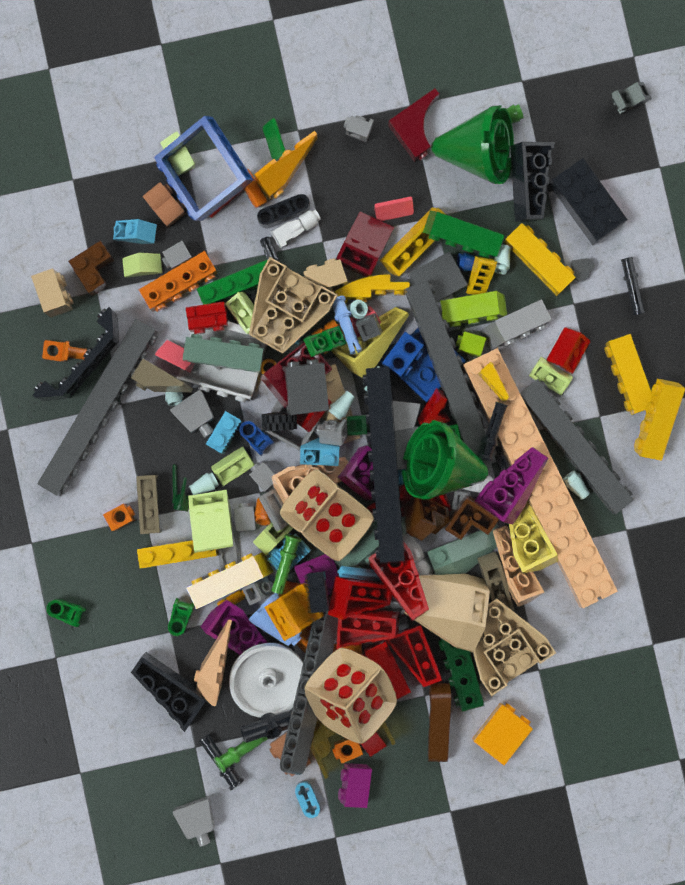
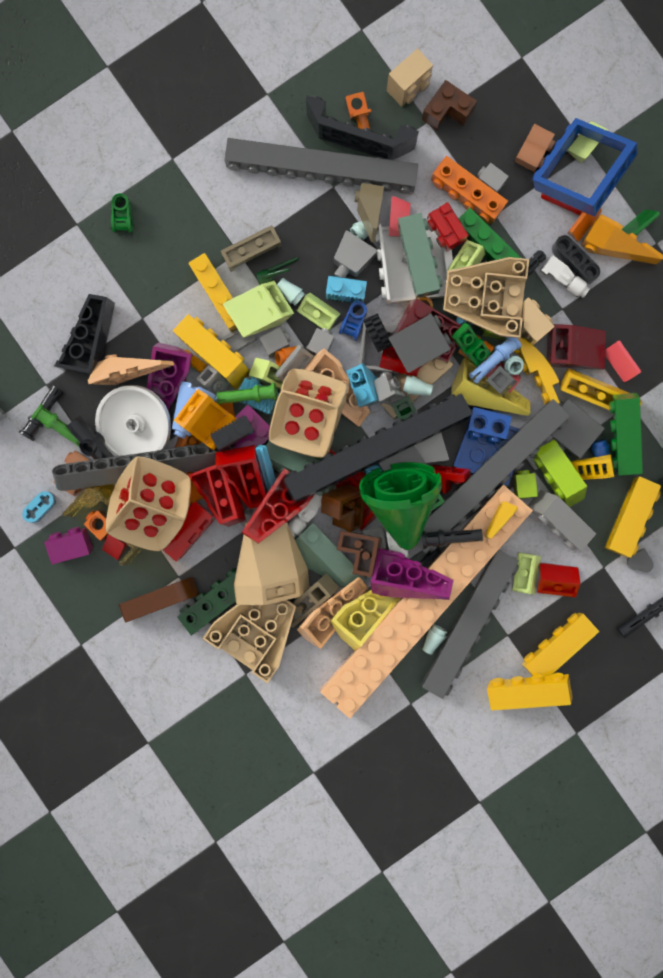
camera: 70 degrees right, 0 degrees up
(113, 523) = (227, 219): orange brick -> none
(135, 231) = (498, 131): medium azure slope -> none
(142, 264) = (470, 151): yellowish green slope -> none
(180, 615) = (160, 320): green piece -> none
(357, 473) = (359, 426): magenta brick -> none
(416, 654) = (214, 551): red wedge -> none
(502, 733) = (172, 664): light orange brick -> none
(503, 260) = (617, 483): light aqua cone -> none

